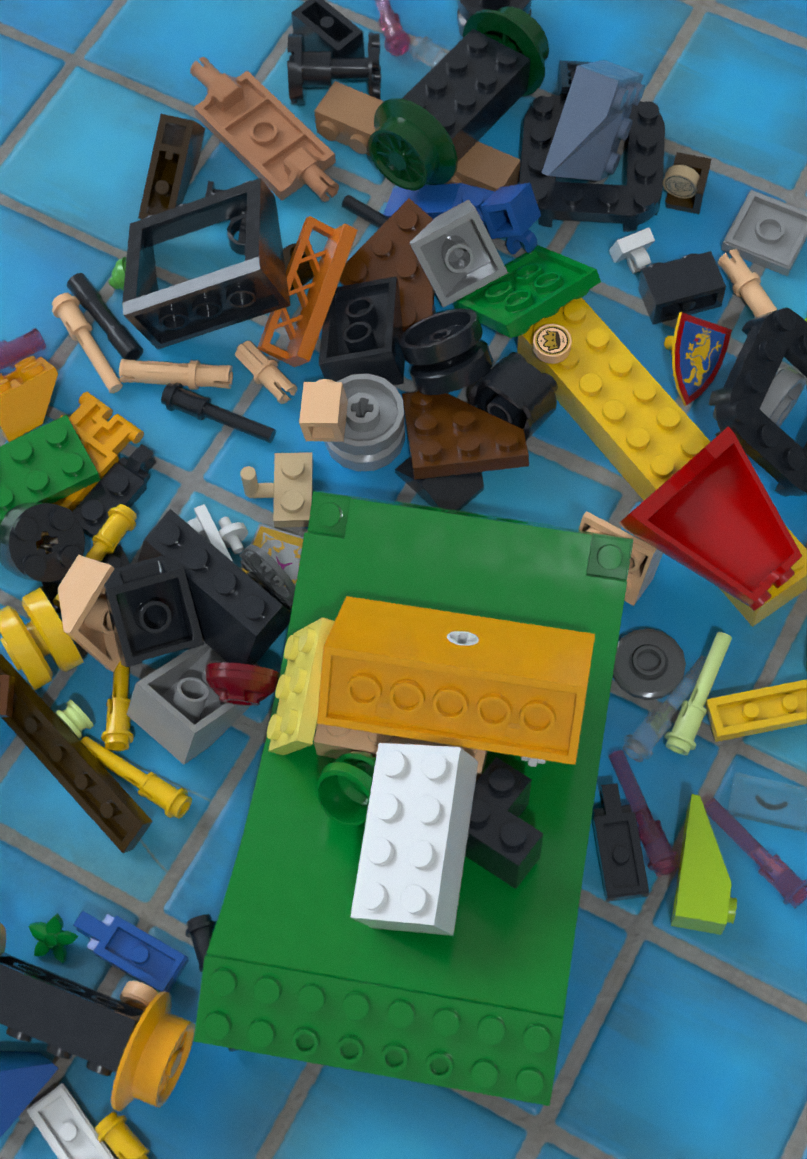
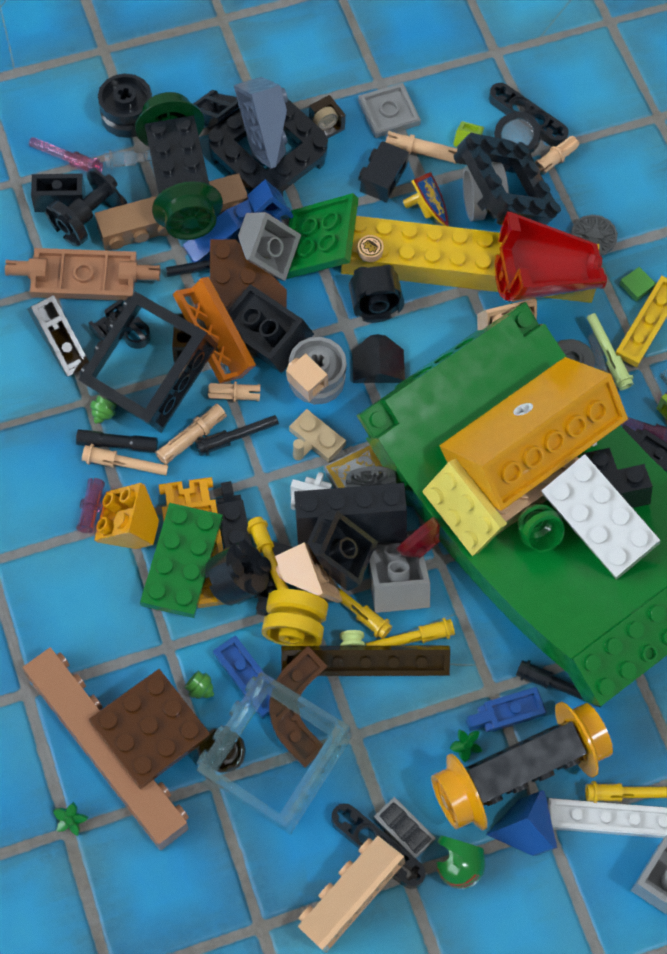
camera: 55 degrees left, 0 degrees up
(138, 994) = (539, 723): light nougat tile -> none
(446, 351) = (321, 298): black wheel -> none
(459, 438) = (374, 335): reddish brown plate -> none
(633, 249) = (340, 172): white tile -> none

